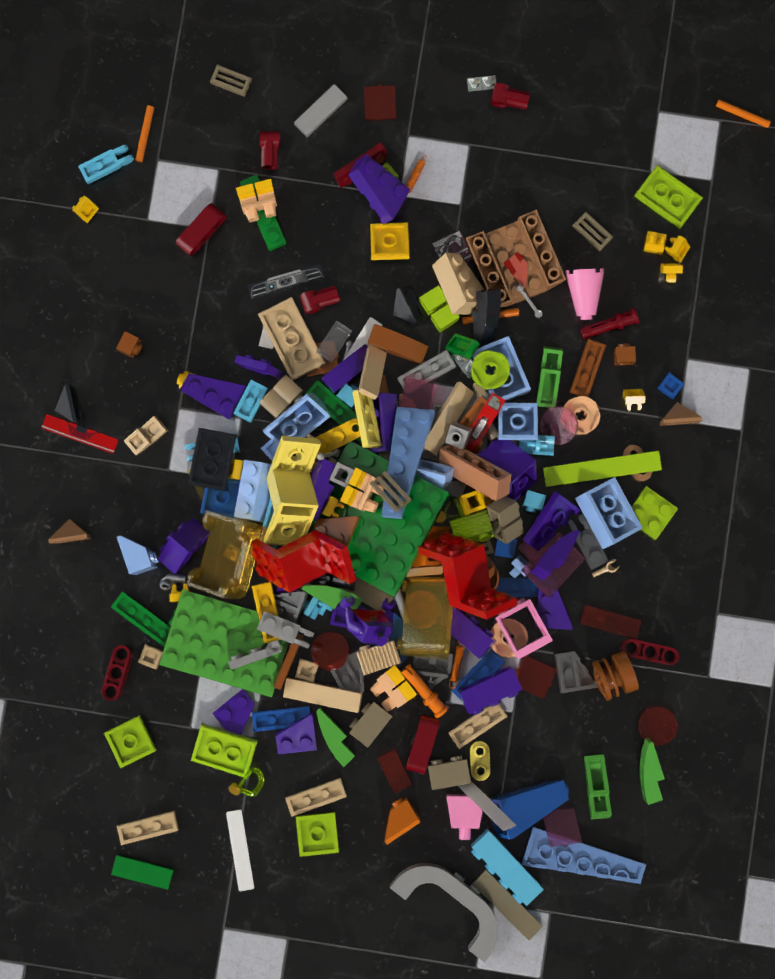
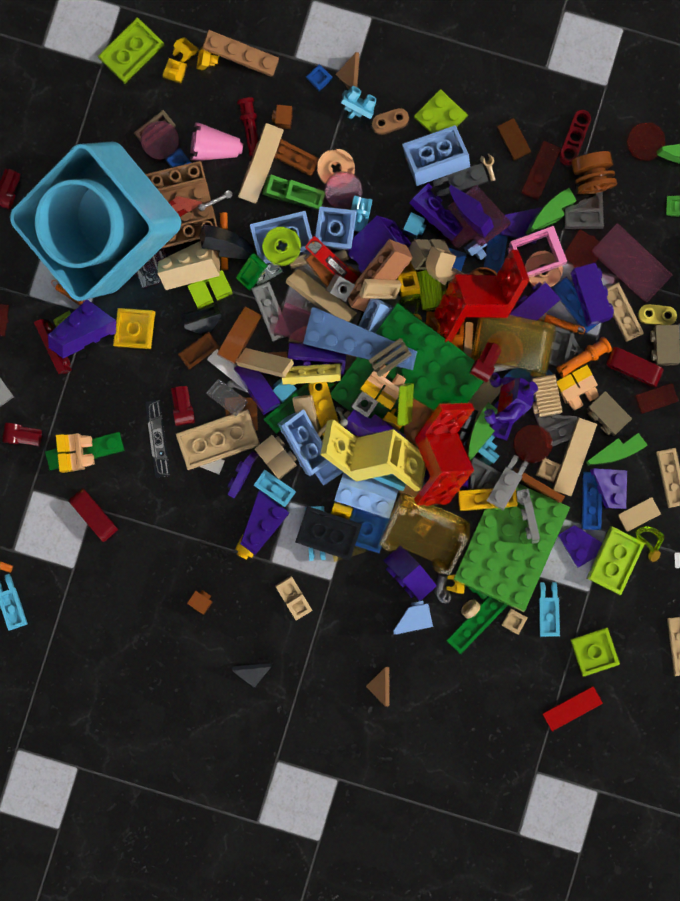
camera: 85 degrees left, 0 degrees up
(72, 726) = (572, 708): none -> red tile
(79, 433) = (281, 665): red sticker -> none
(85, 209) = (54, 629): yellow tile -> none
(110, 679) = (535, 655): dark red beam -> none
(156, 611) = (470, 609): none -> tan tile
(163, 690) = (549, 612): none -> medium azure hinge
(274, 768) = (639, 514): none -> tan tile
(336, 418) = (306, 402): none -> tan tile
(346, 514) = (405, 404): none -> lime tile
(377, 307) = (198, 350): none -> reddish brown tile
(398, 589) = (484, 365): none -> dark red piece
(461, 474) = (380, 289): none -> tan tile
(486, 179) = (95, 220): none -> medium azure piece
(493, 530) = (440, 264): none -> tan brick
(529, 727) = (631, 263): none -> clear pink tile
(565, 258) = (177, 159): none -> blue tile
(568, 637) = (552, 211): none -> bright green slope
(573, 339) = (260, 163): none -> tan slope
(581, 237) = (159, 139): none -> clear pink tile
(602, 468) = (392, 155): lime tile -> none
(634, 396) = (325, 114): yellow tile -> none
(638, 590) = (513, 139): none -> reddish brown tile
(648, 425) = (356, 105): none -> medium azure hips
(682, 303) = (240, 53): none -> medium nougat plate

